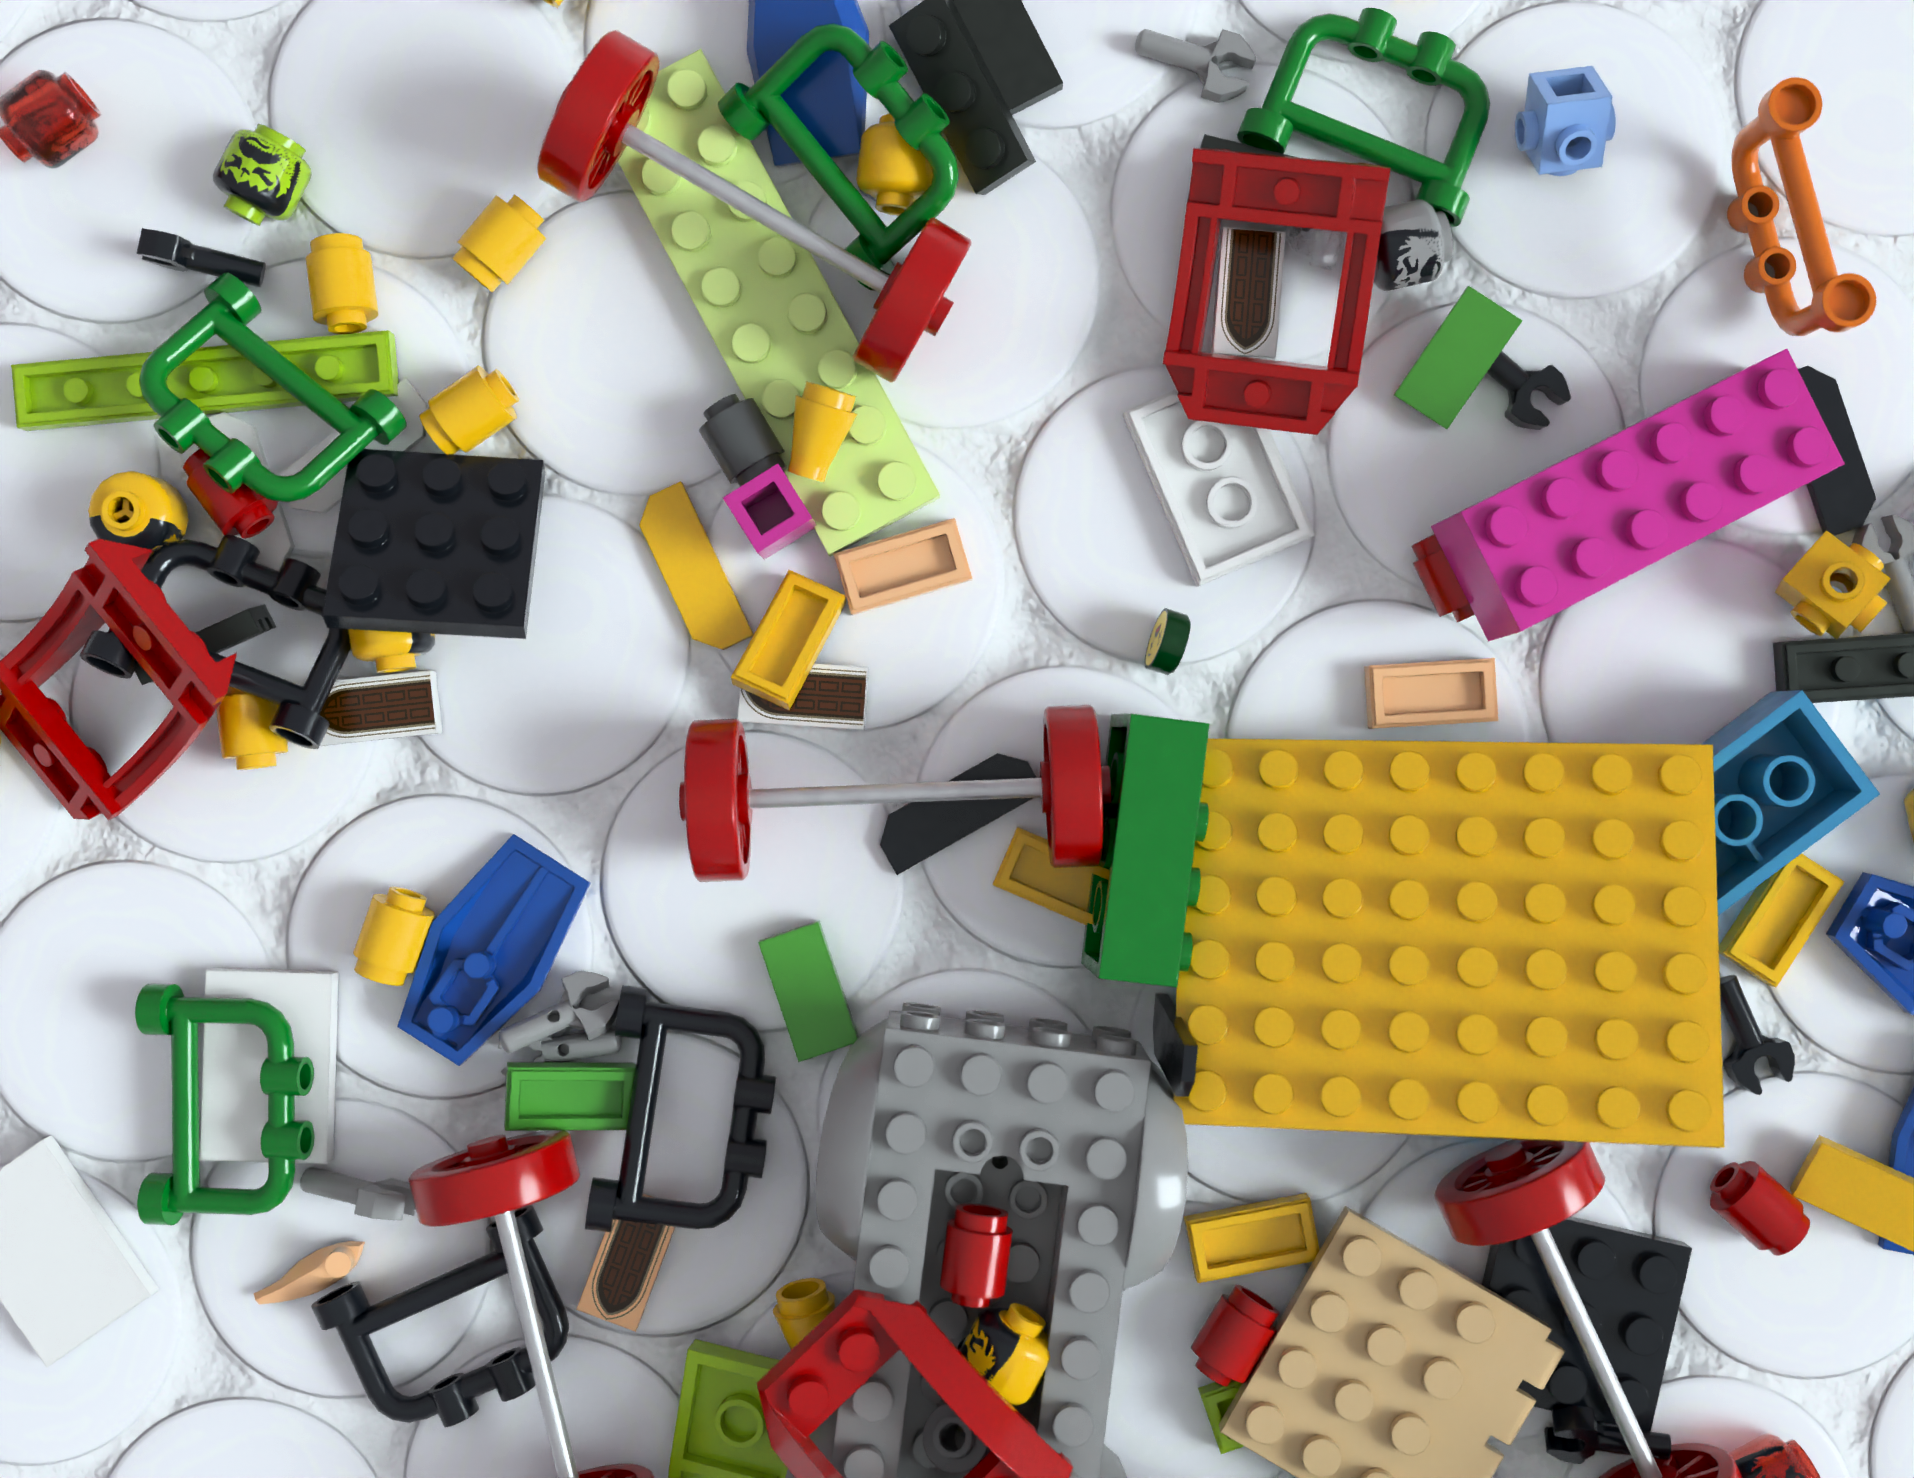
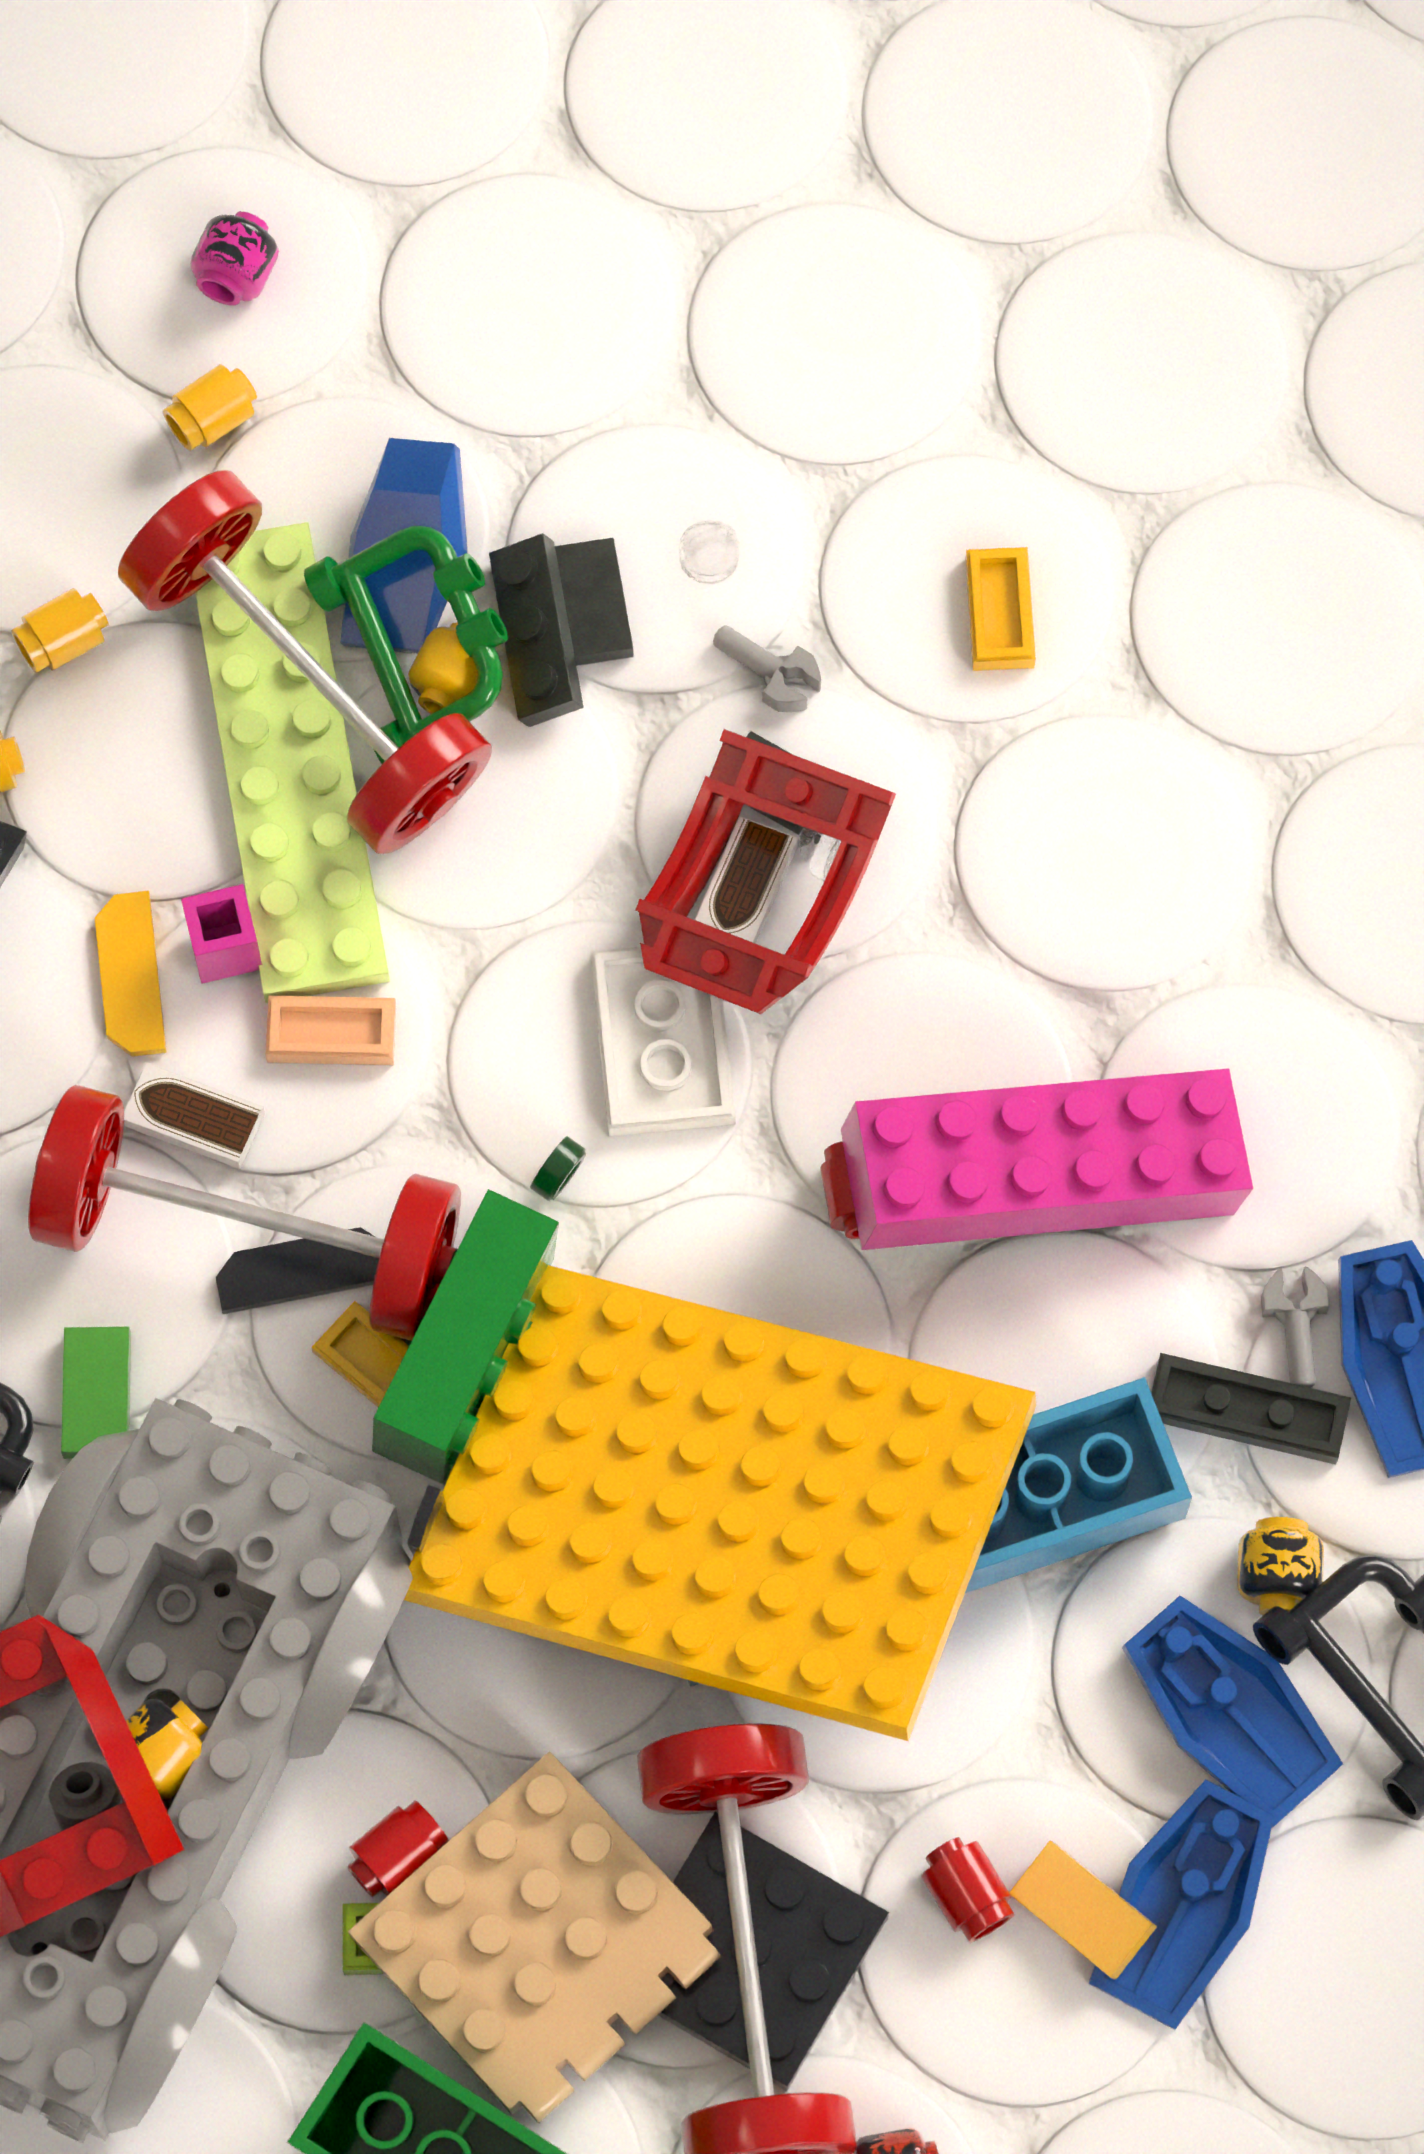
camera: 20 degrees right, 20 degrees down
(741, 439) = (218, 859): dark grey brick -> none
(788, 640) = (197, 1057): yellow tile -> none
(819, 429) = (294, 871): yellow cone -> none
(976, 1255) = (165, 1648): red brick -> none
(1252, 1237) = (446, 1767): yellow tile -> none
(1373, 41) = (937, 695): green bar -> none
(1412, 245) = (904, 880): head -> none
(1431, 693) = (803, 1298): light nougat tile -> none
(1457, 357) = (923, 995): bright green tile -> none
(1520, 386) = (979, 1039): black bar -> none
(1565, 120) = (1088, 815): light blue brick -> none
(1578, 1436) = (727, 2067): black bar -> none
(1750, 1041) = (1015, 1729): black bar -> none
(1780, 919) = (1082, 1619): yellow tile -> none
(1834, 564) = (1218, 1307): yellow brick -> none
(1837, 300) = (1258, 1011): orange bar -> none
(1846, 493) = (1268, 1214): black piece -> none

